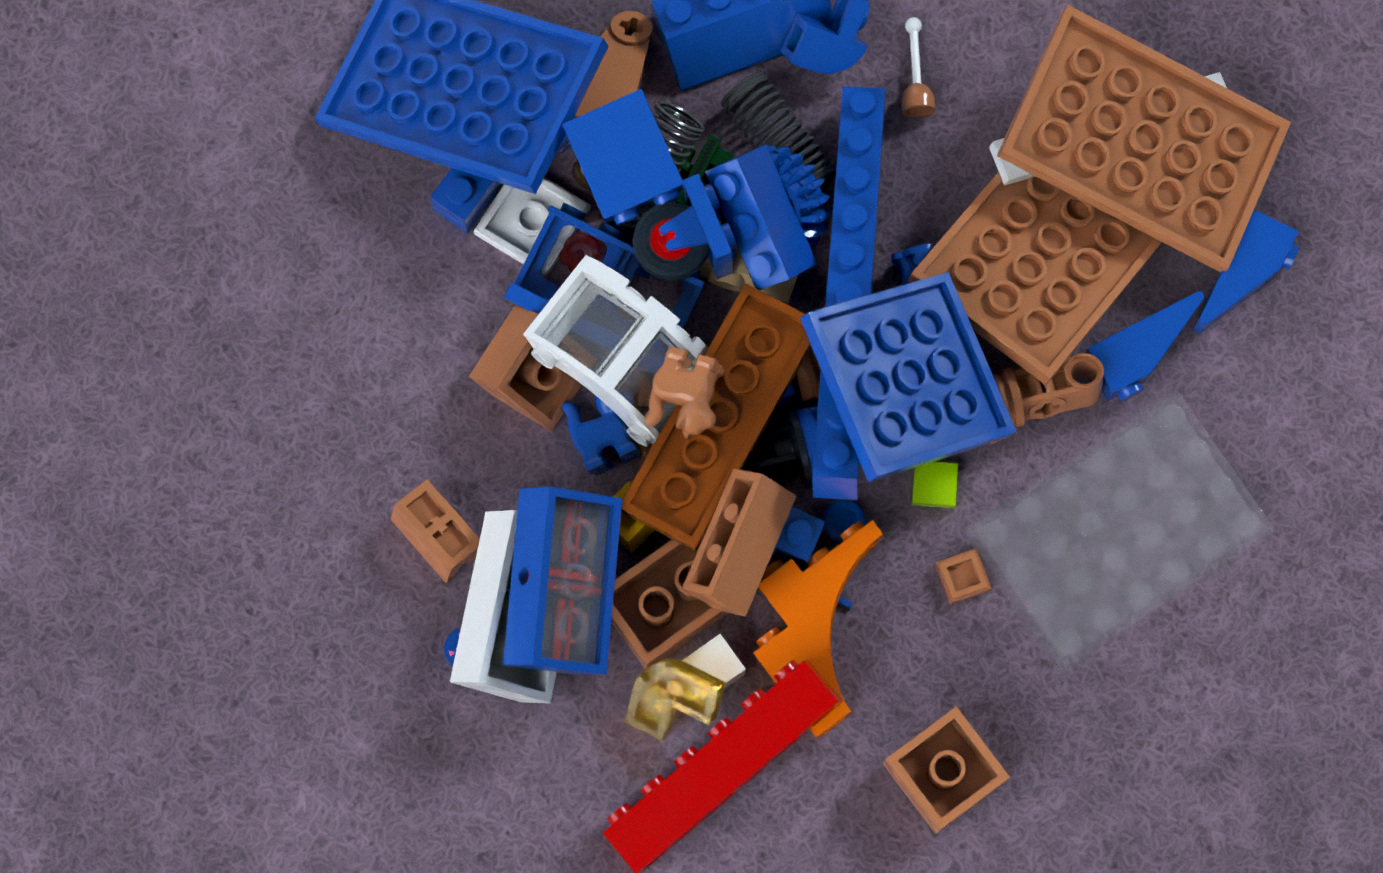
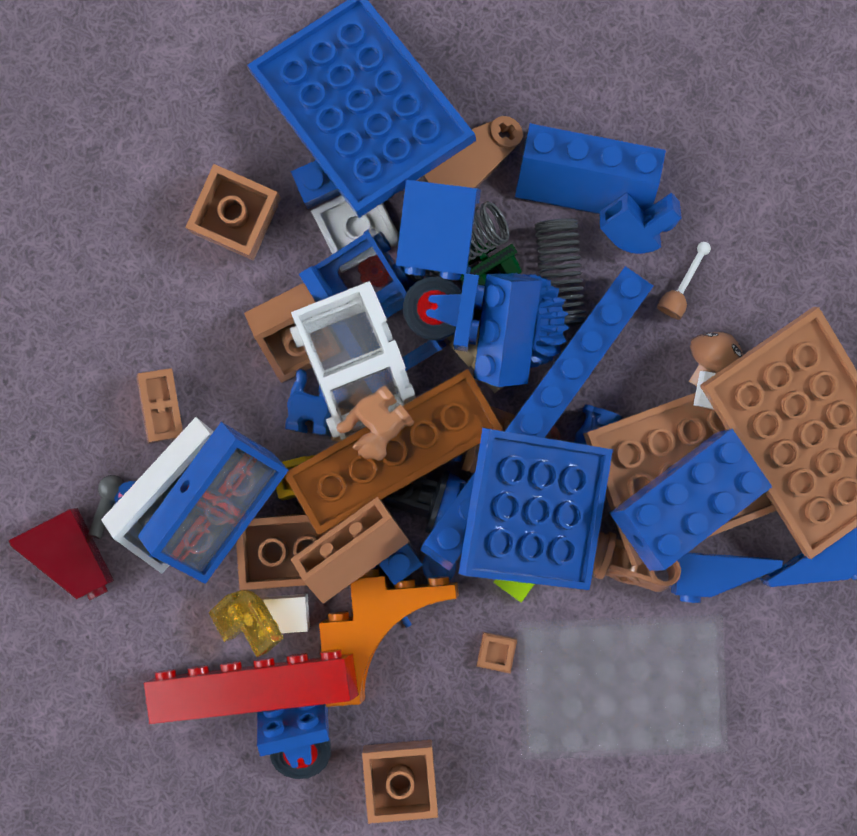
camera: 30 degrees right, 10 degrees up
(393, 278) = (233, 212): none -> nougat brick
(431, 750) = (66, 554): none -> dark red slope
(434, 659) = (107, 490): none -> dark grey bar
(805, 793) = (295, 739): none -> blue plate
(990, 121) = (713, 352): none -> nougat piece
(1062, 277) = (691, 500): none -> blue brick

